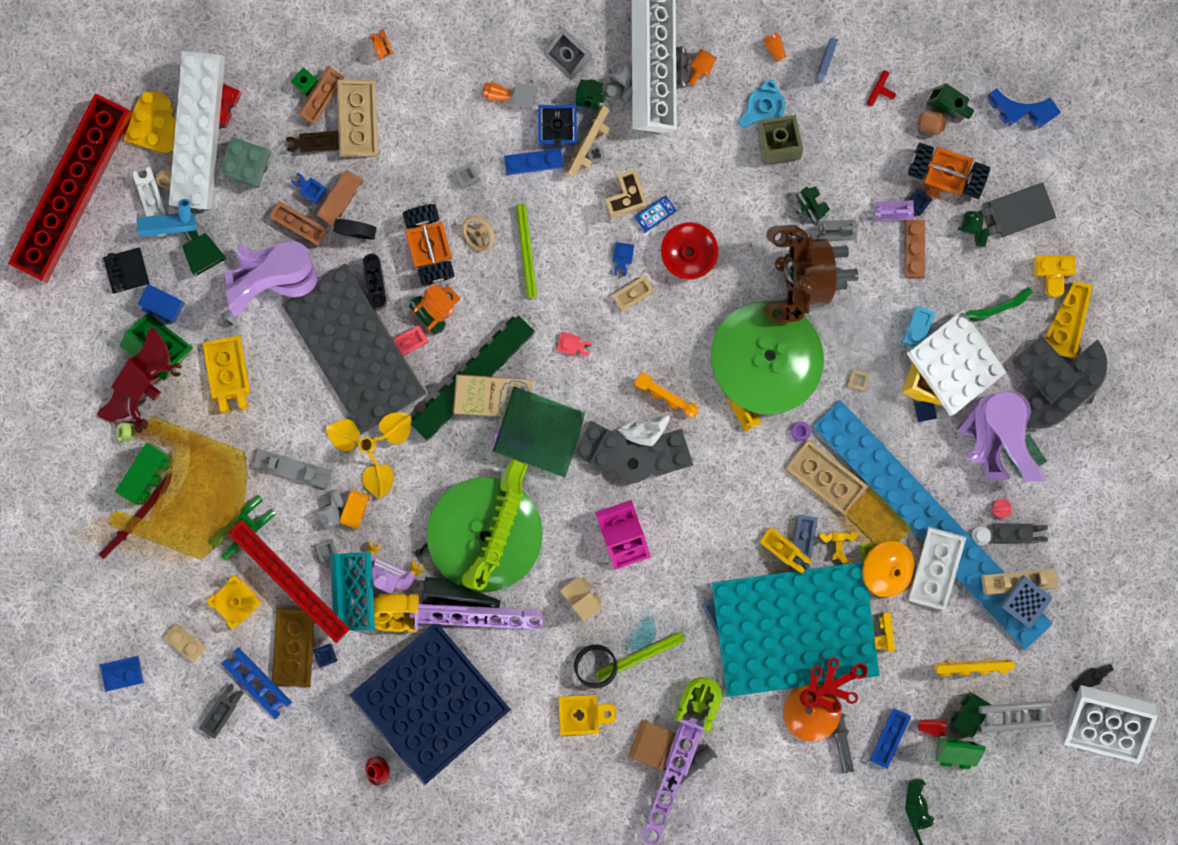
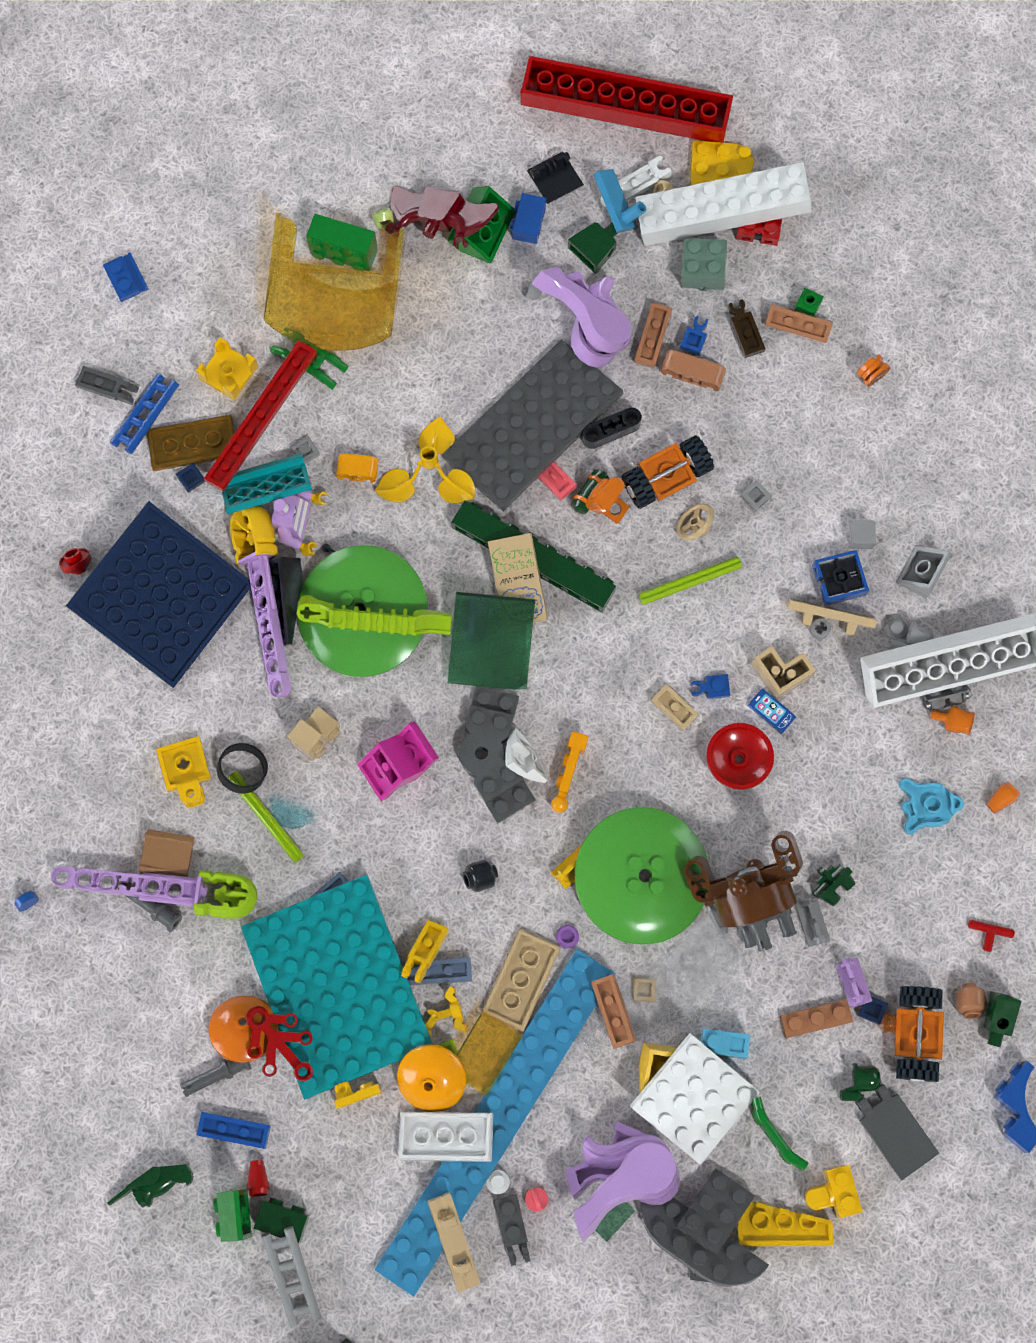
camera: 80 degrees right, 10 degrees down
(141, 514) = (298, 253): dark red sword -> none
(184, 642) = (172, 331): tan plate -> none
(227, 371) = (472, 303): yellow tile -> none
(292, 468) = (386, 394): light grey hinge -> none
(329, 514) = (346, 443): light grey piece -> none
(354, 229) = (662, 390): black tyre -> none
(357, 118) = (785, 366): tan tile -> none
(494, 91) = (857, 503): orange cone -> none
(533, 161) = (792, 564): blue plate -> none
(570, 343) = (599, 653): coral plate -> none
(590, 94) = (885, 603): dark green brick -> none
(734, 490) = (480, 875): none -> black head
(780, 139) = (897, 827): olive slope -> none
(826, 59) = (1006, 857): sand blue tile -> none
(872, 409) = (614, 1011): none -> nougat plate
(925, 411) = (628, 1078): dark blue tile -> none
(982, 666) = (335, 1199): yellow hinge -> none
(1026, 601) = (431, 1254): sand blue tile -> none

